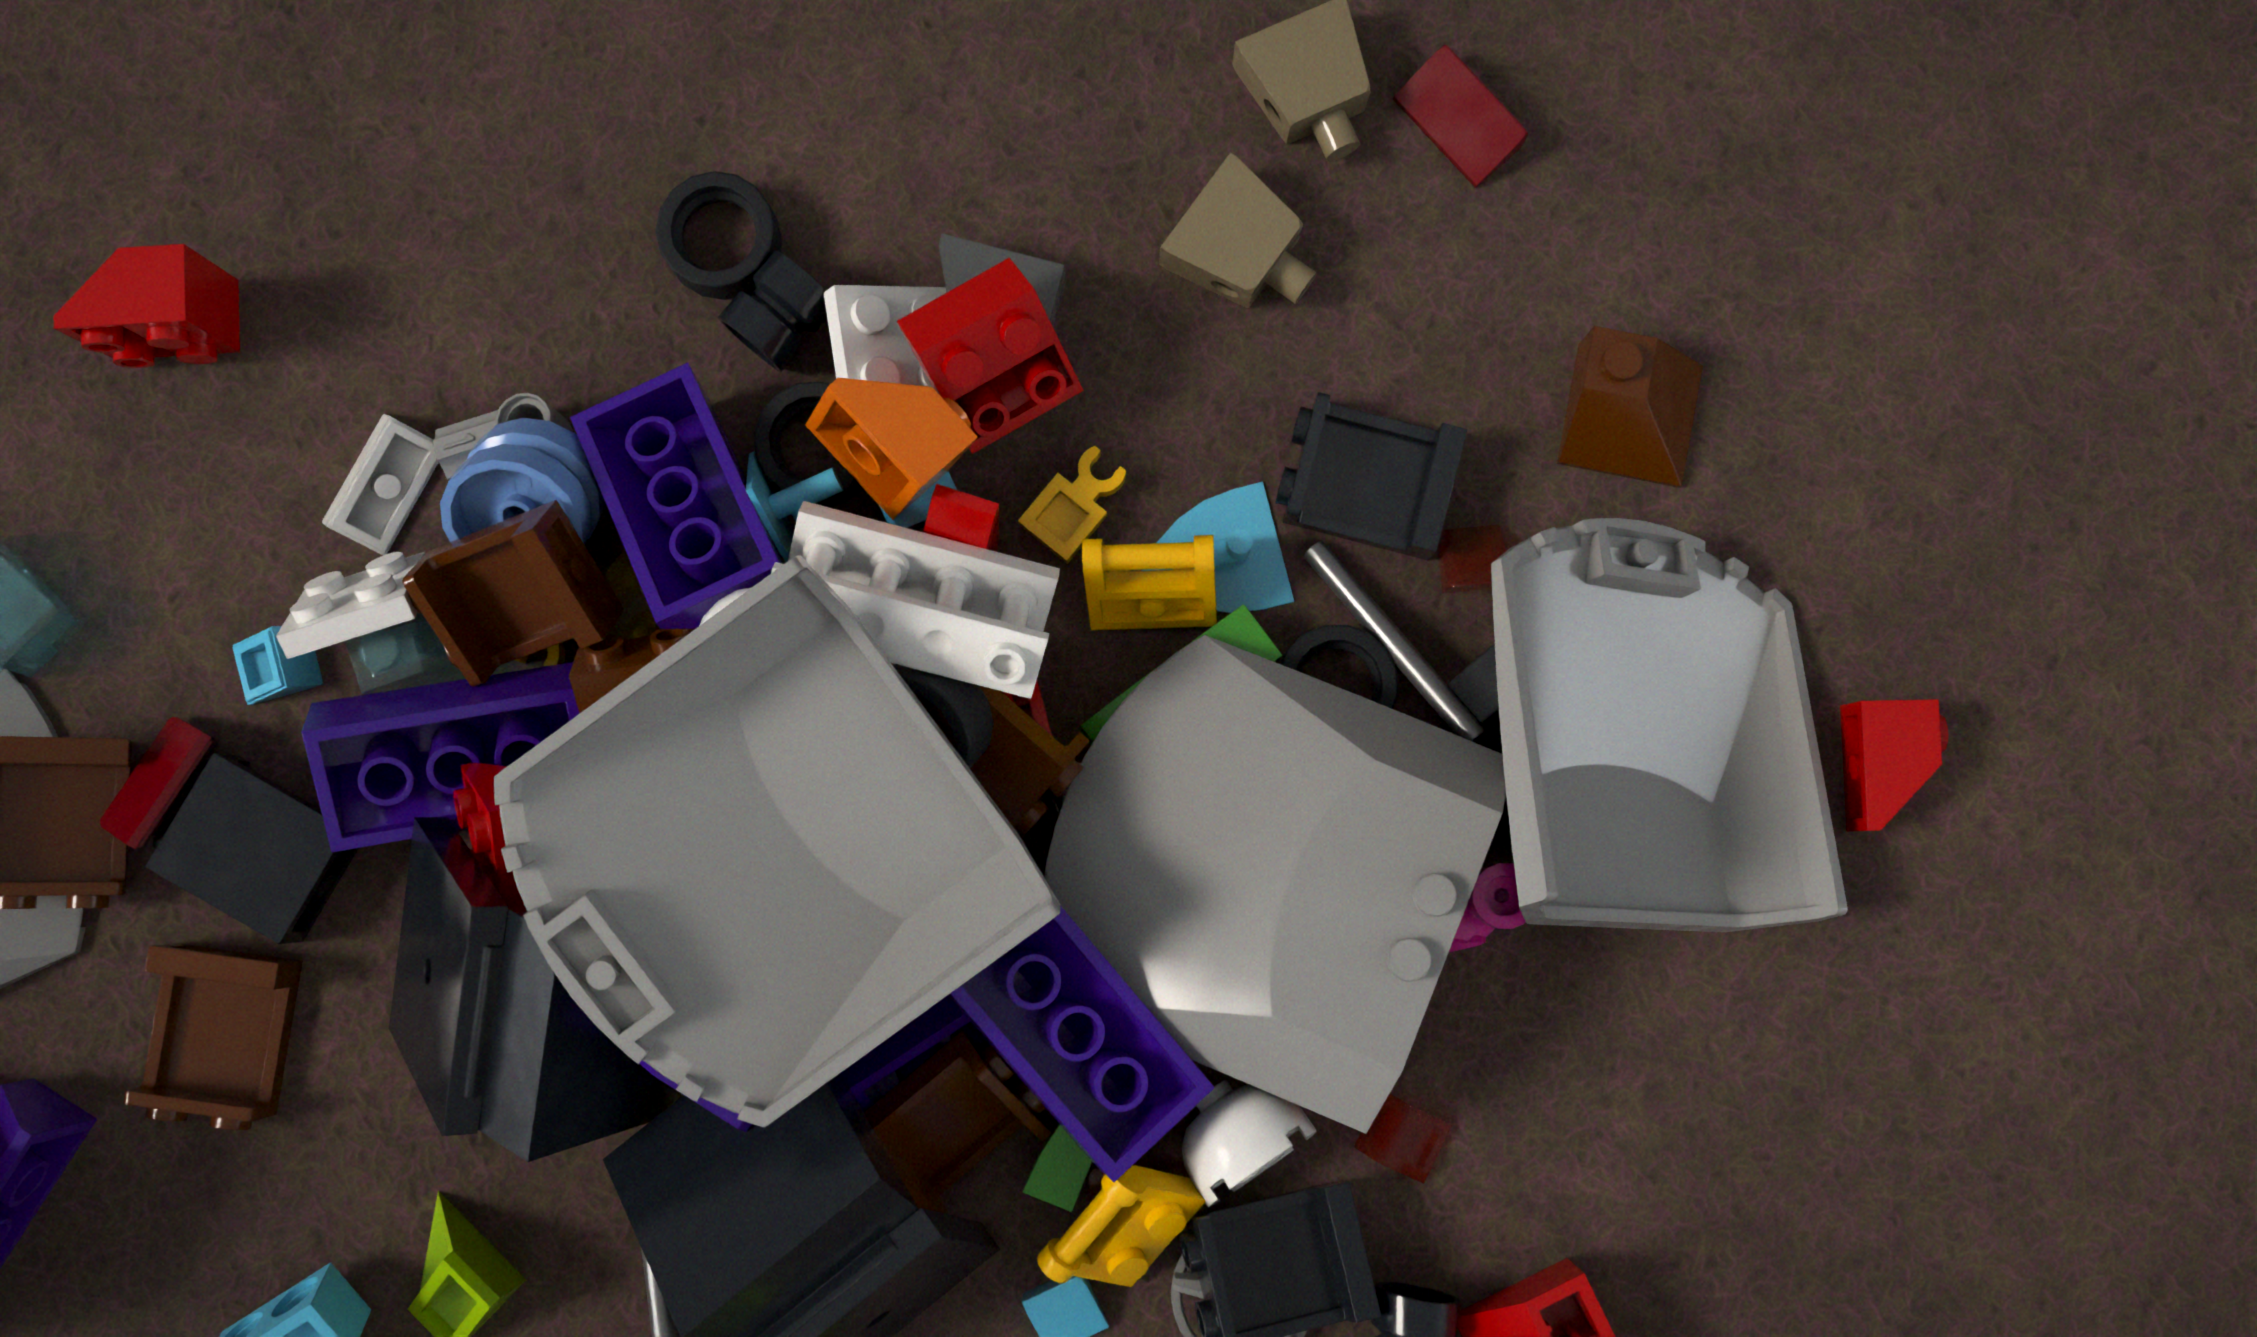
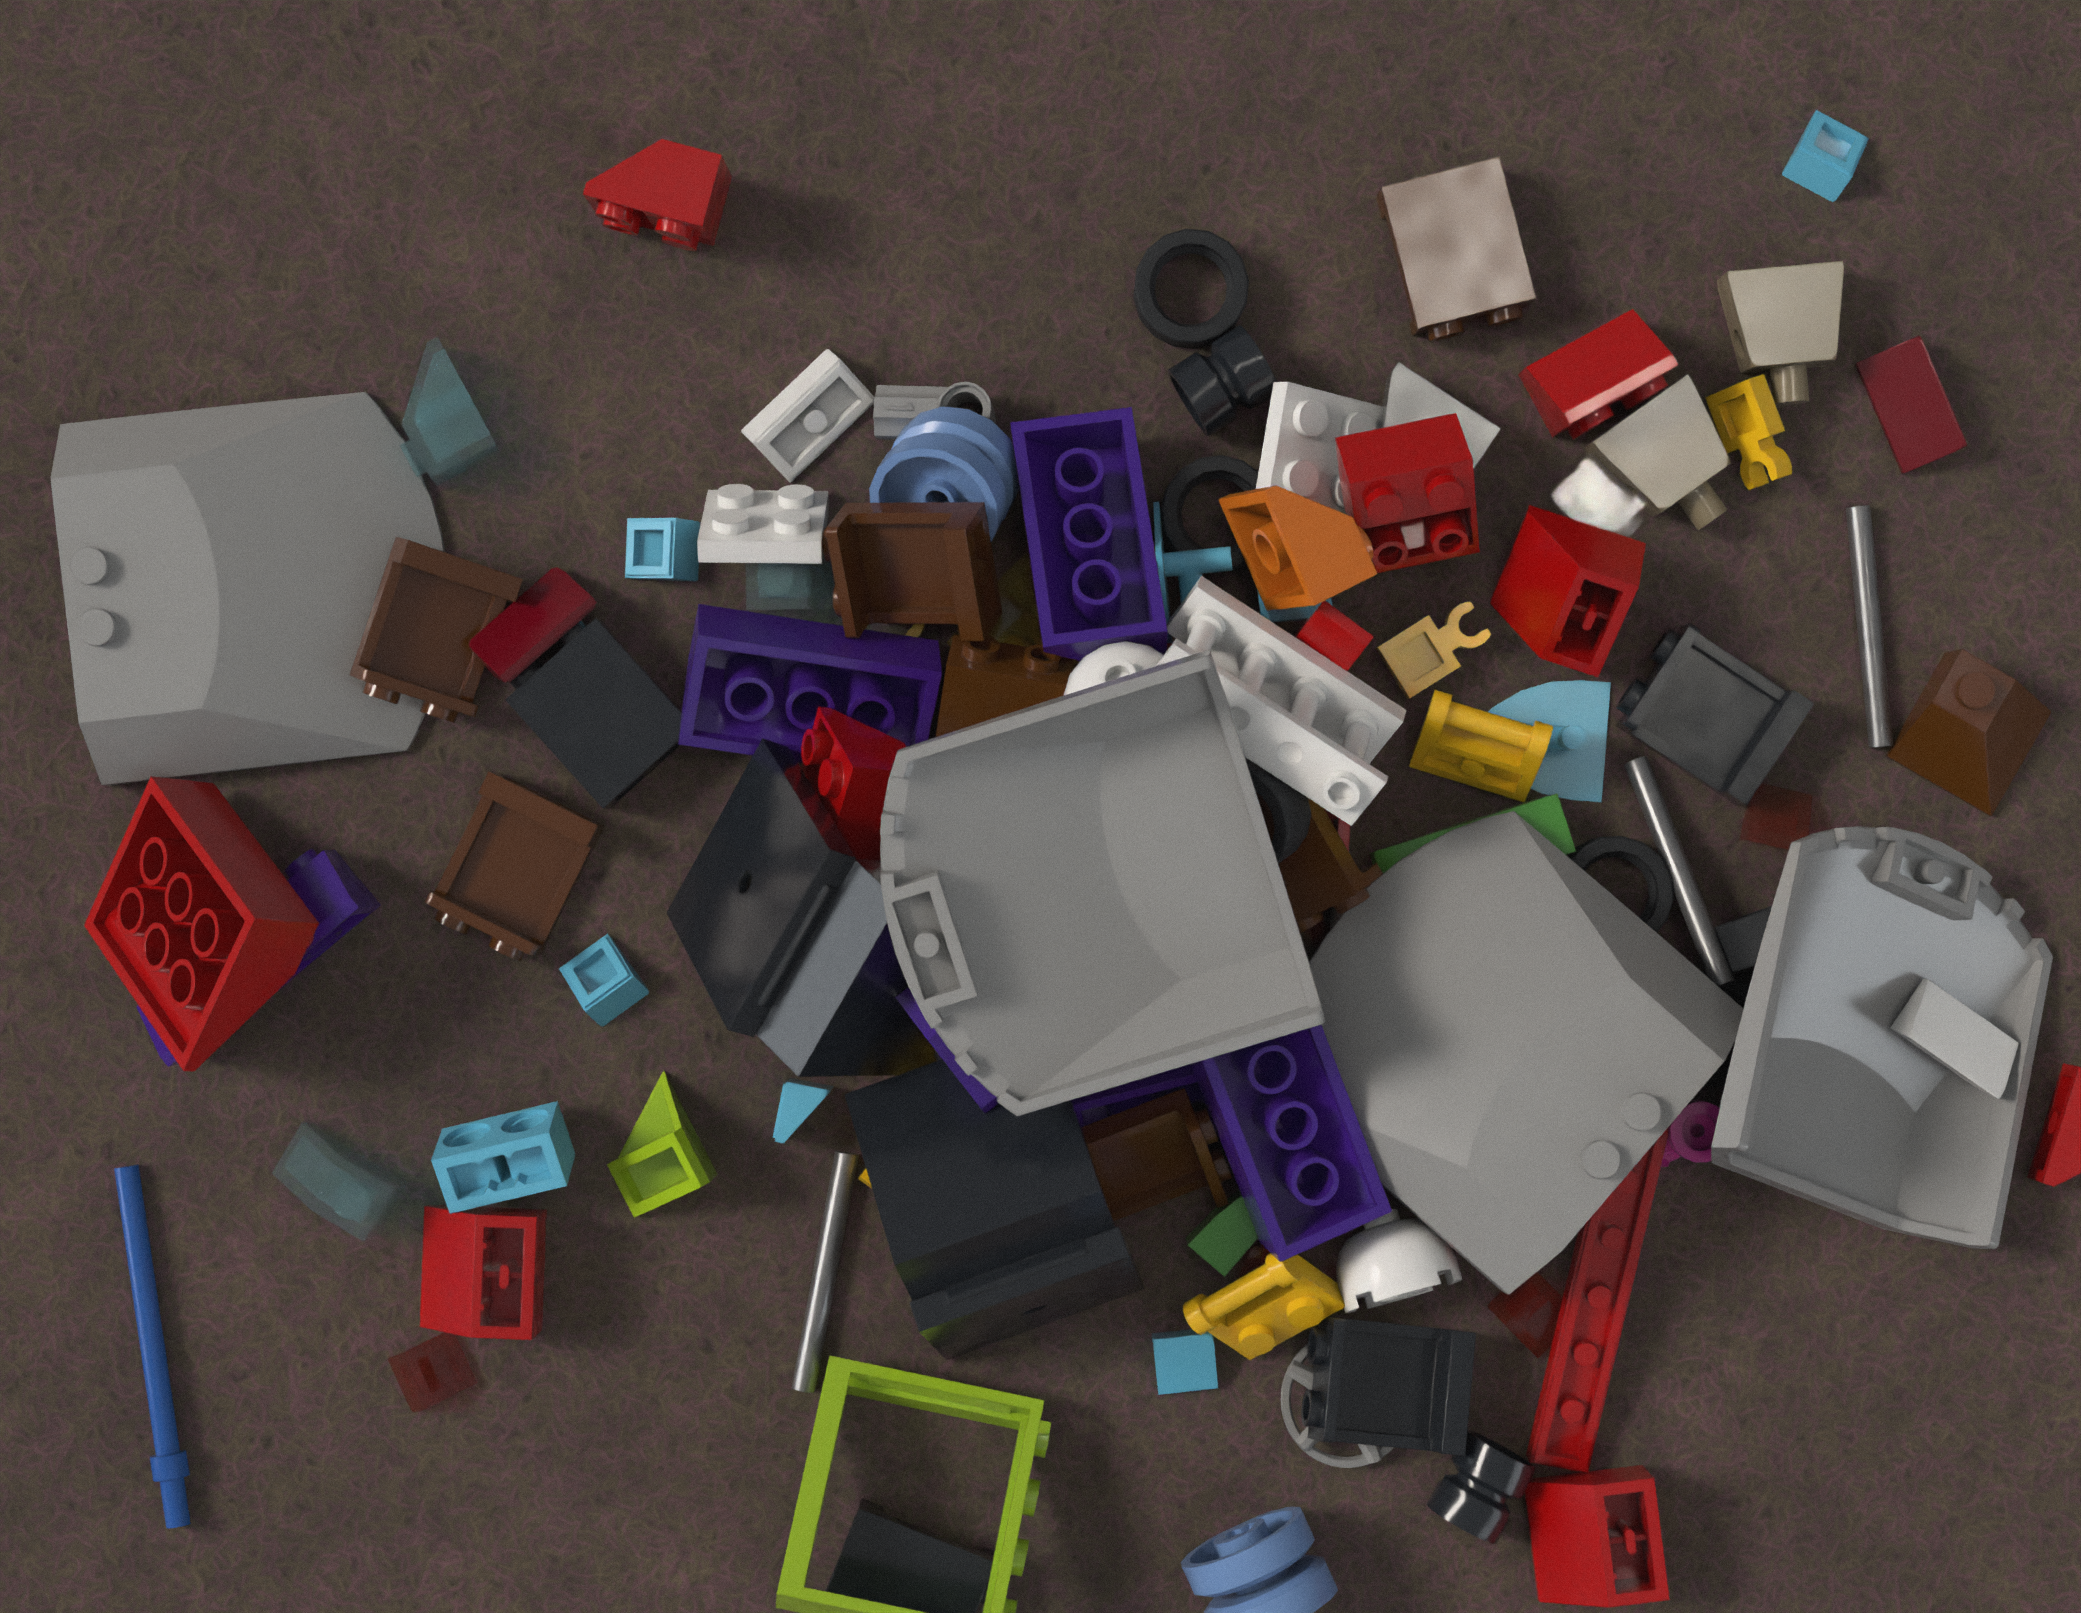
camera: 20 degrees right, 5 degrees up
(347, 1121) = (603, 981): none -> medium azure slope
(577, 1184) = (796, 1104): none -> medium azure slope
(967, 110) = (1458, 248): none -> panel
(1144, 184) = (1596, 371): none -> red slope
(1184, 397) = (1568, 588): none -> red slope
(1189, 310) = (1598, 498): none -> clear bracket
(1308, 183) = (1747, 423): none -> yellow plate
(1464, 1124) = (1593, 1320): none -> red tile
(1496, 342) = (1869, 626): none -> flat silver bar
(1729, 714) = (1957, 1038): none -> white slope

